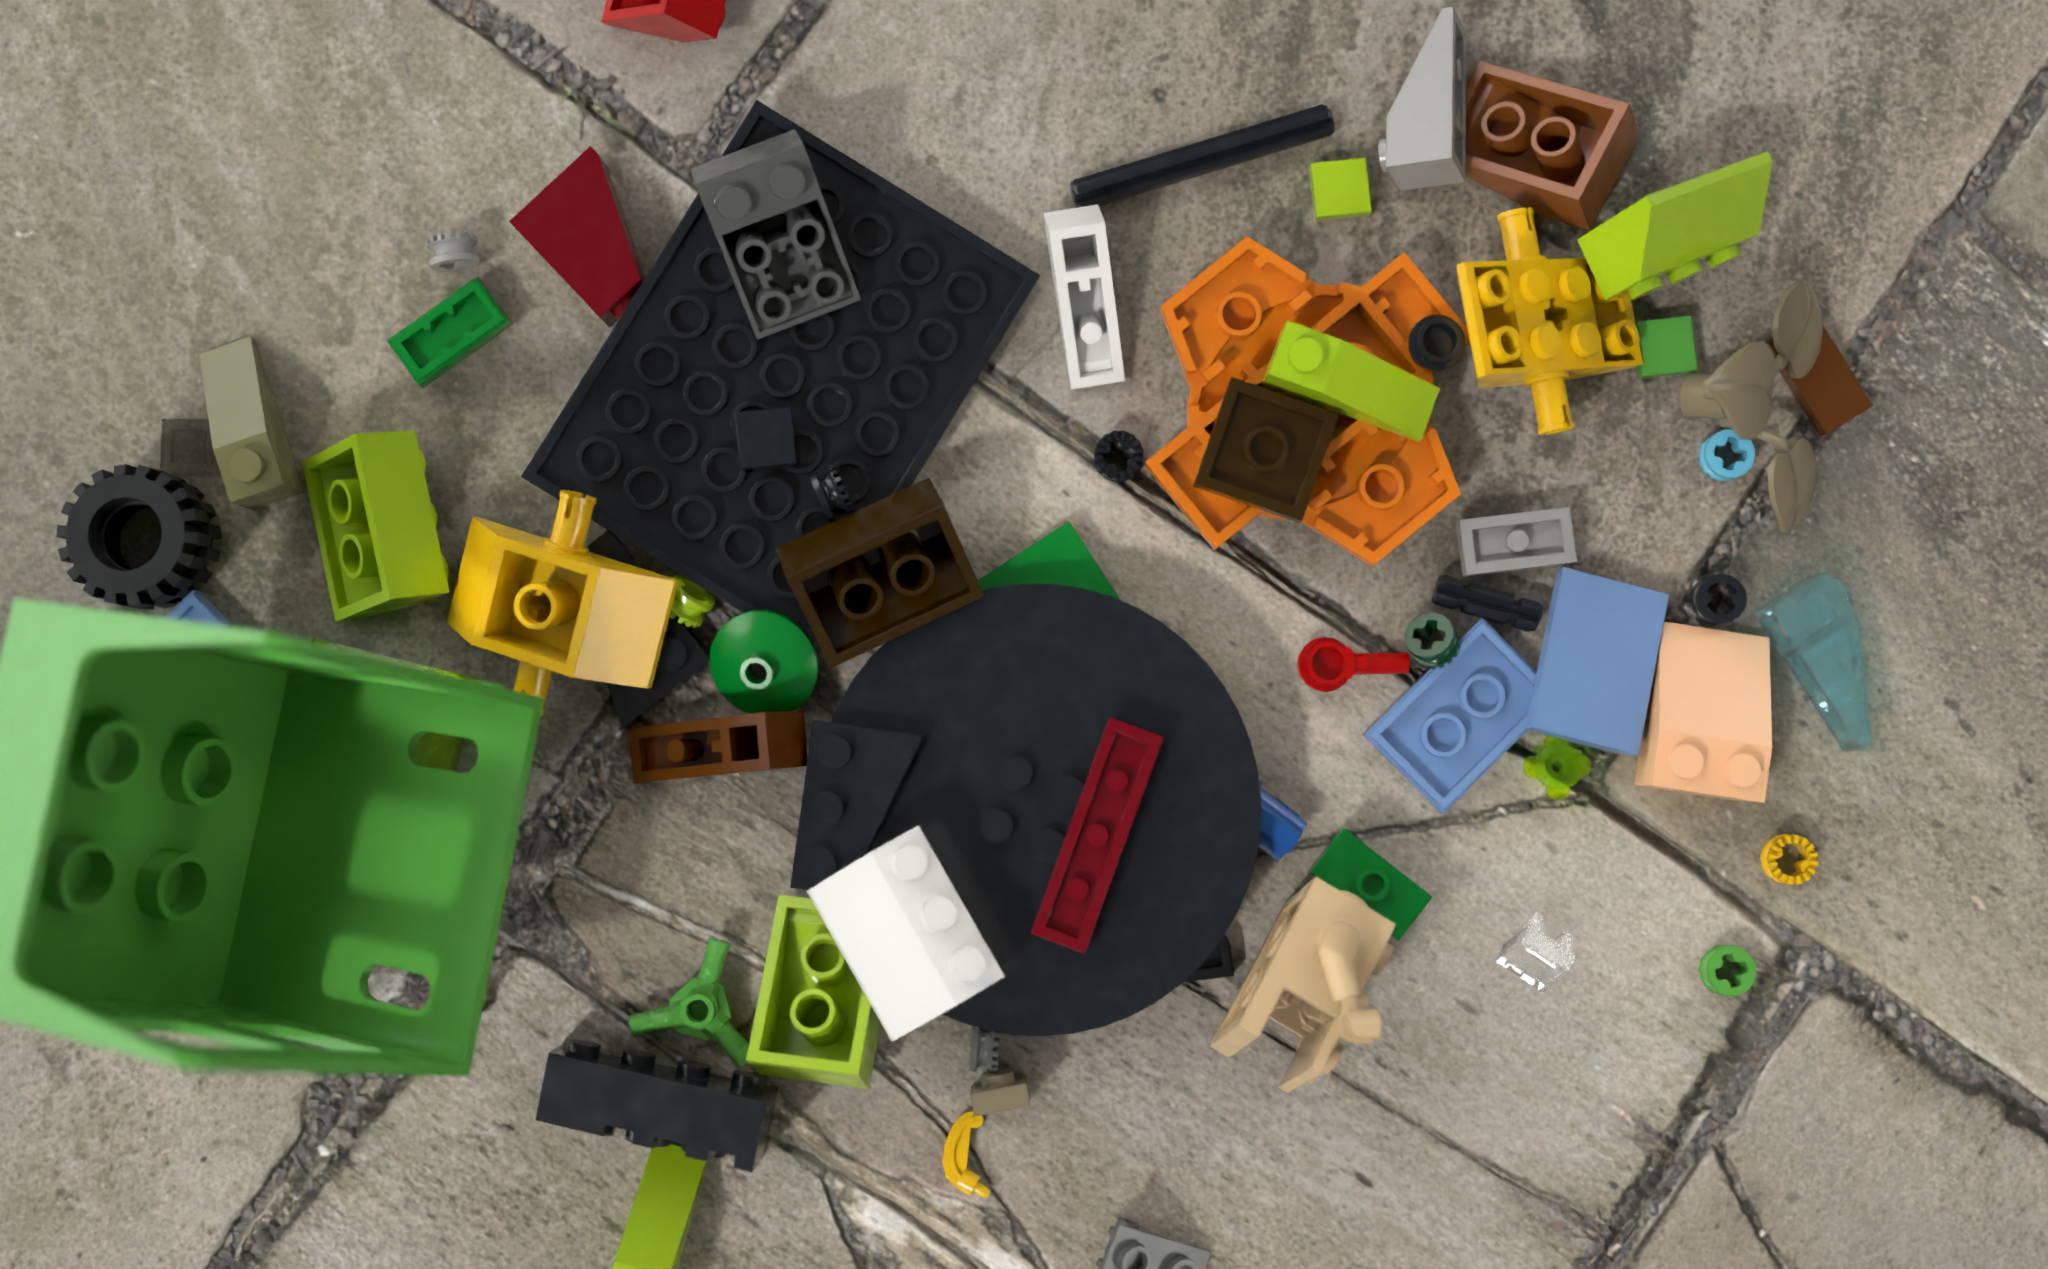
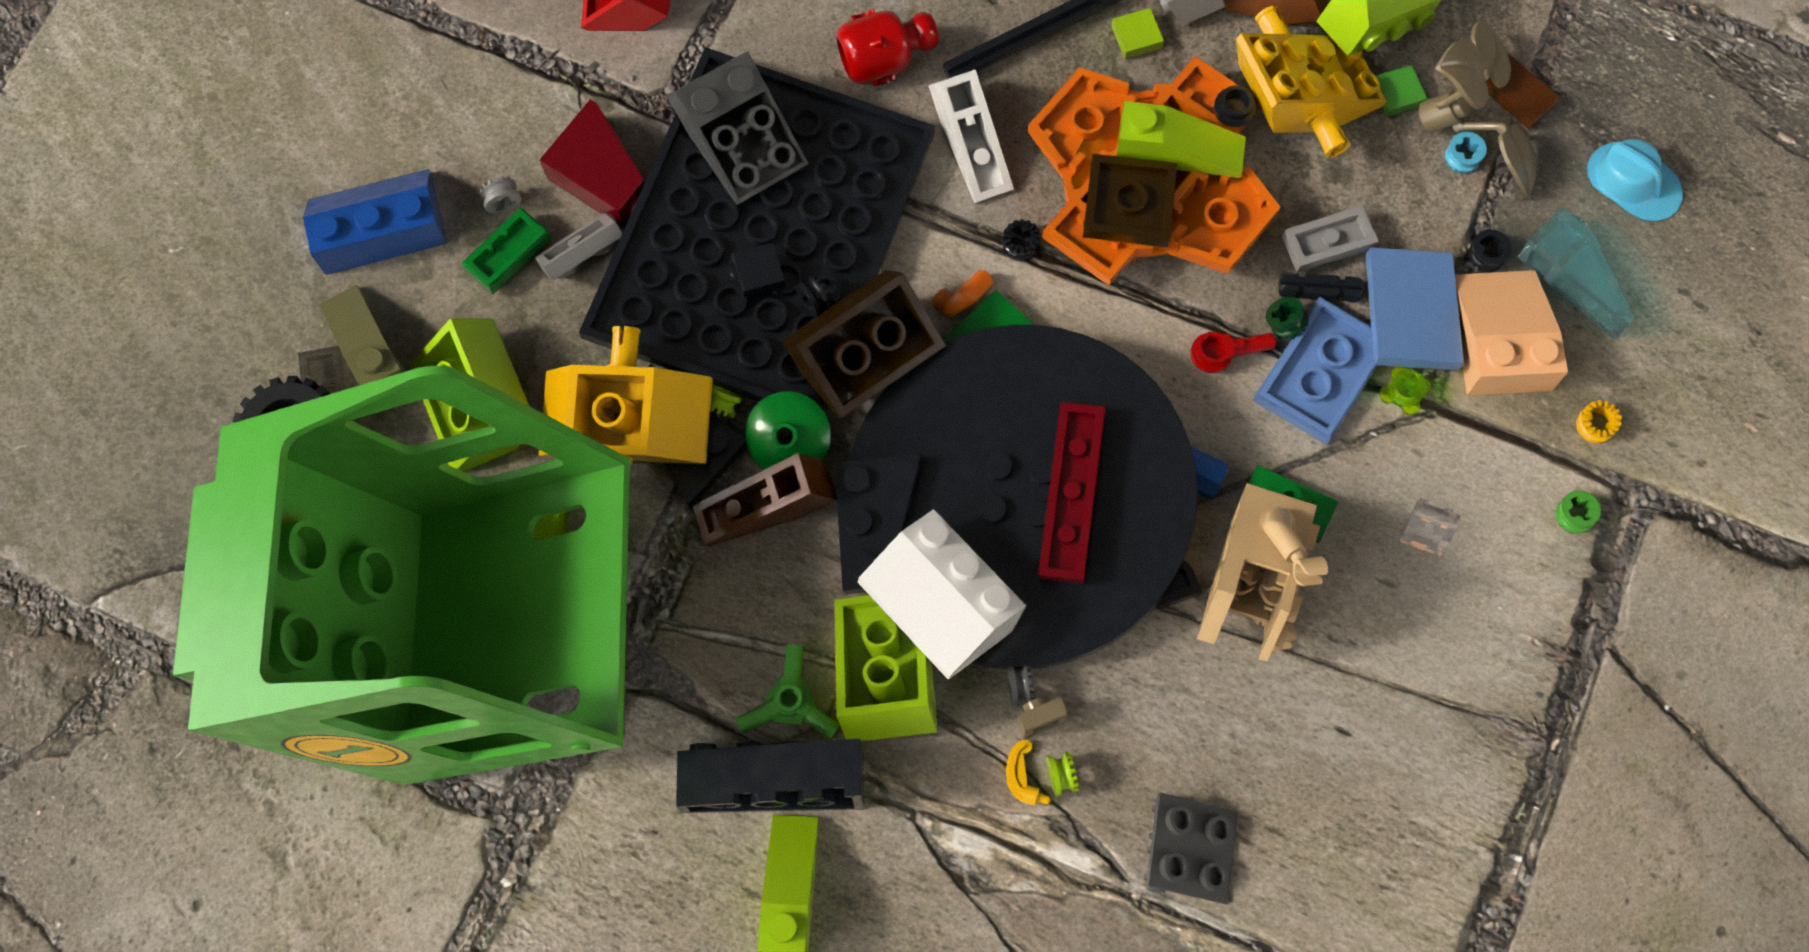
camera: 10 degrees left, 15 degrees down
(283, 251) = (374, 222): none -> blue slope
(543, 348) = (591, 239): none -> light grey plate
(990, 142) = (880, 46): none -> red piece
(1007, 1168) = (1062, 774): none -> lime bush
(1030, 521) = (965, 296): none -> orange arm
(1936, 538) = (1636, 179): none -> medium azure piece

